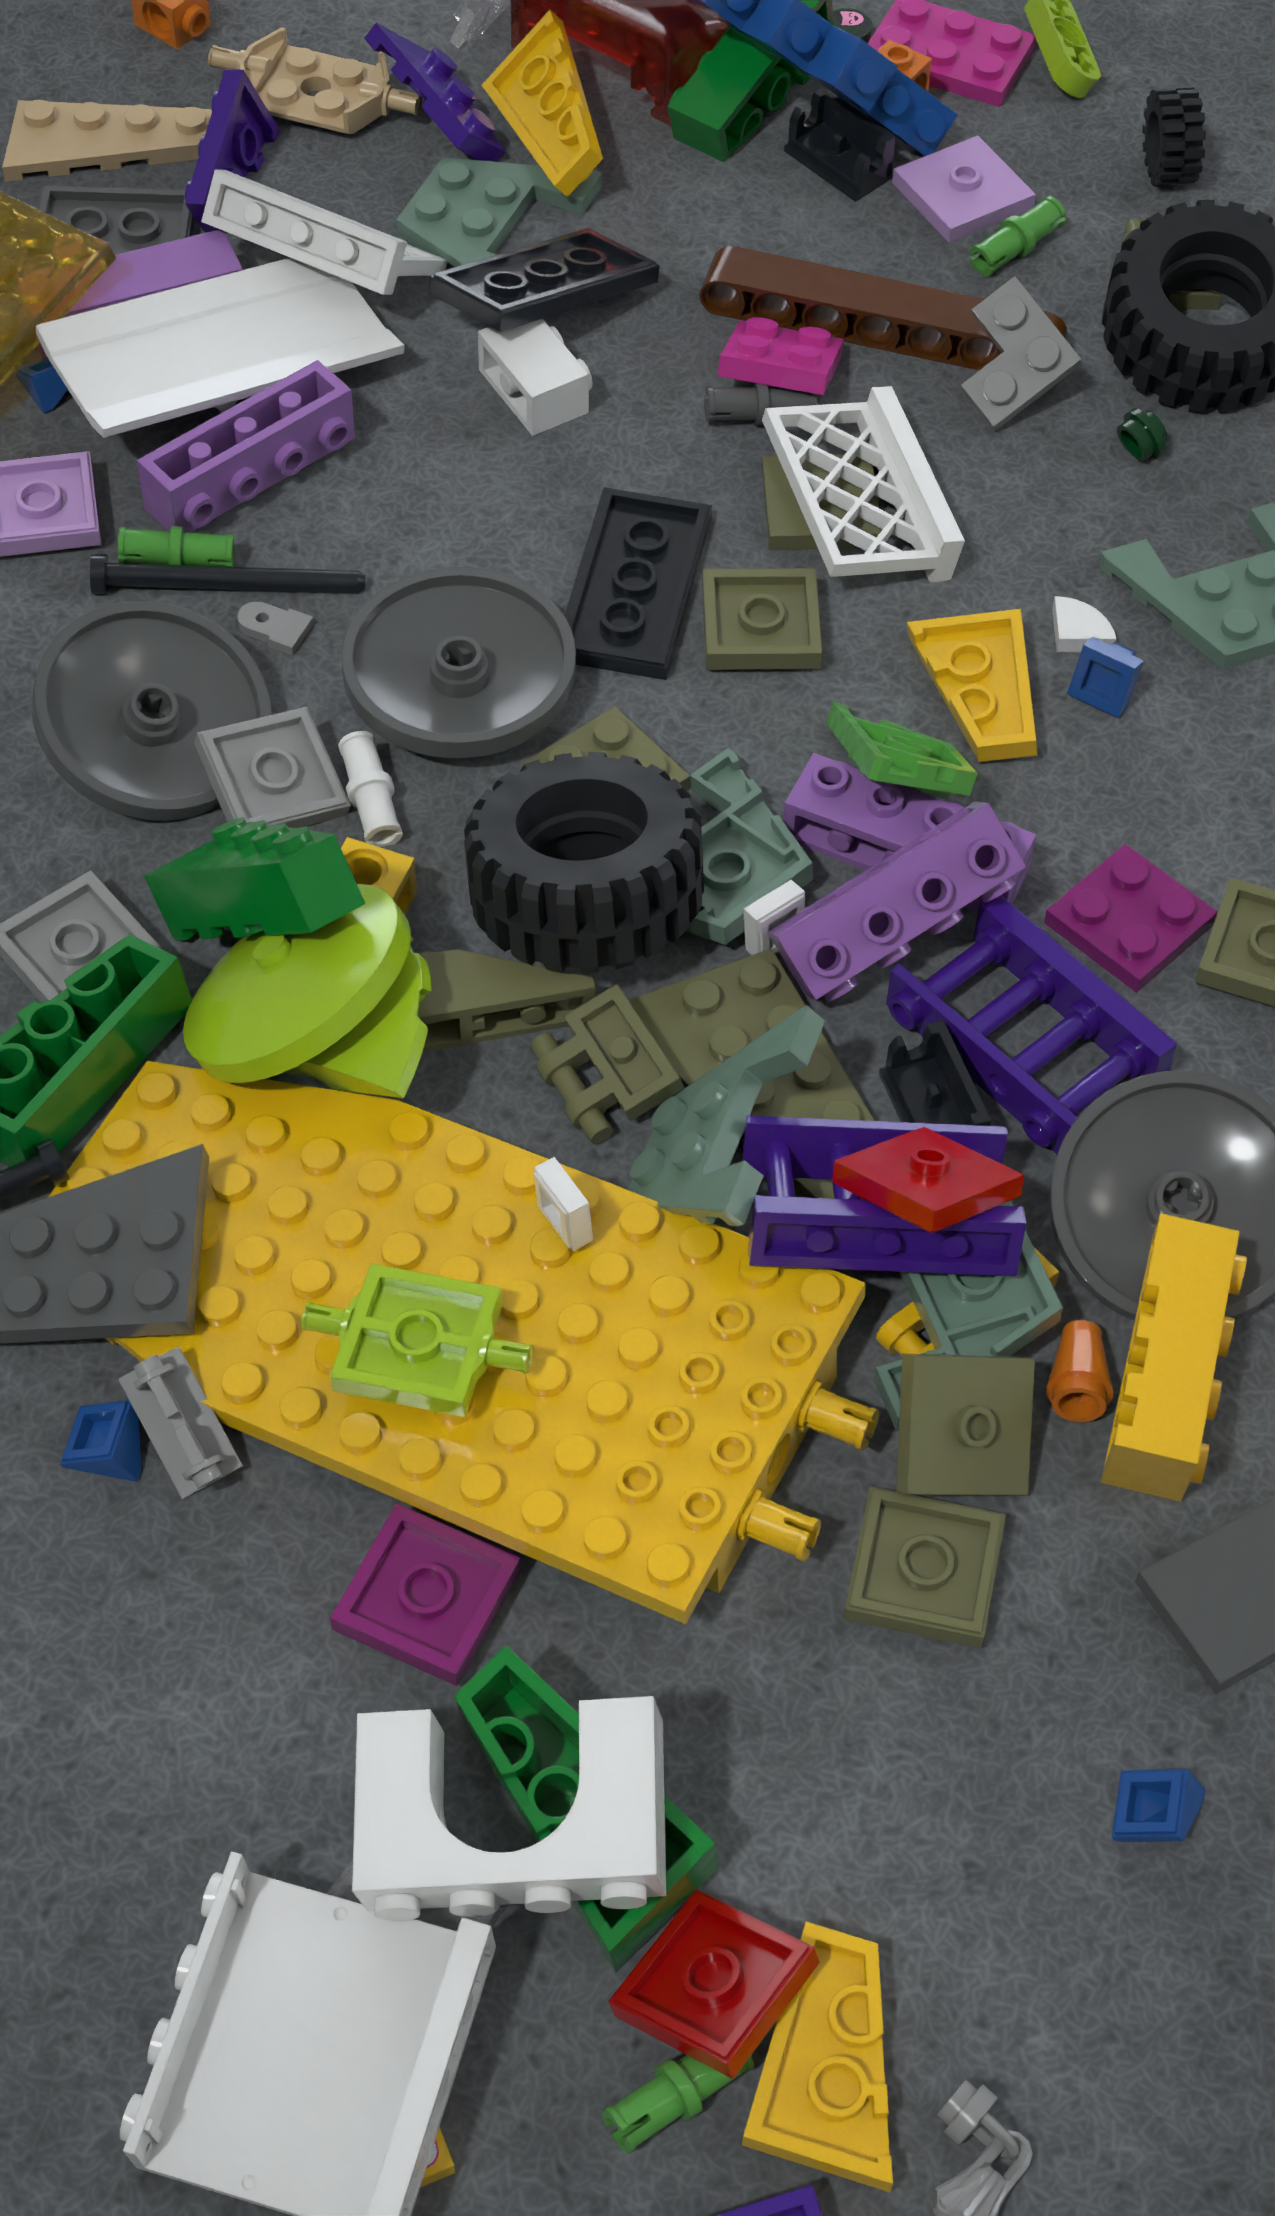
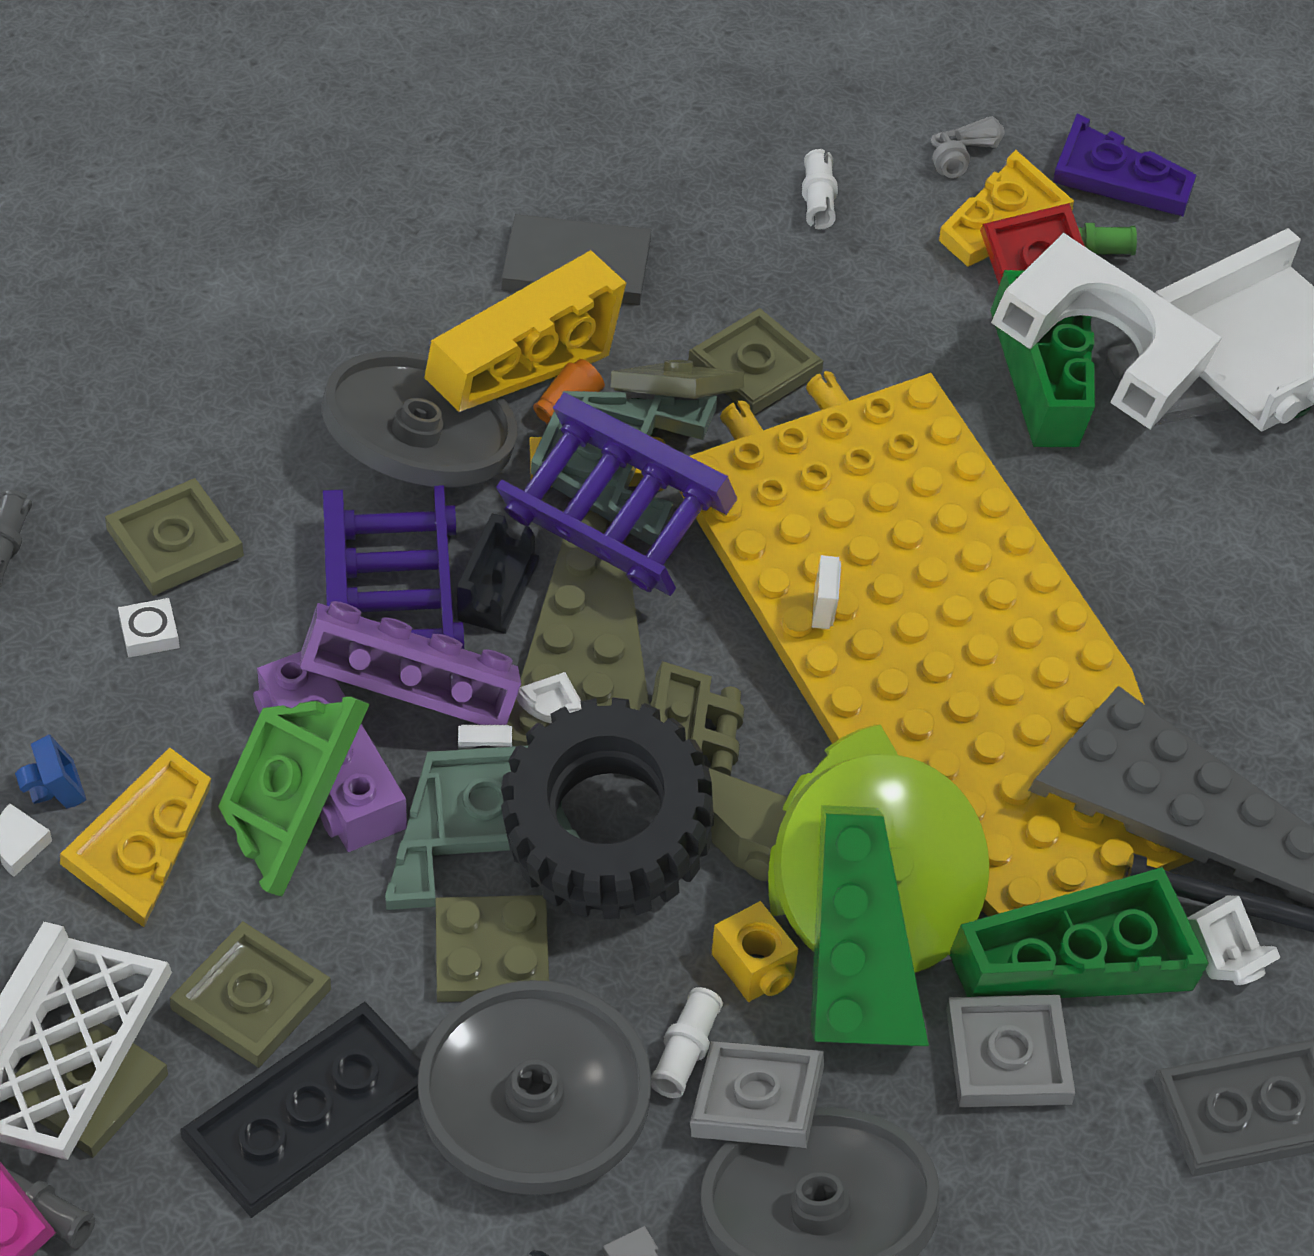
camera: 145 degrees left, 5 degrees down
(105, 1441) = (1201, 705): blue slope -> none
(178, 1424) = (1150, 668): light grey hinge -> none
(417, 1339) = (979, 580): lime plate -> none
(426, 1594) = (1066, 503): magenta plate -> none
(702, 1124) = (693, 615): sand green wing -> none
(749, 987) = (548, 696): none -> white tile
(927, 1179) = (596, 449): red plate -> none
(1087, 1916) = (819, 189): none -> white pin
(1130, 917) = (235, 618): magenta plate -> none
(1156, 1805) = (736, 210): blue slope -> none
(1194, 858) = (148, 627): none -> white tile

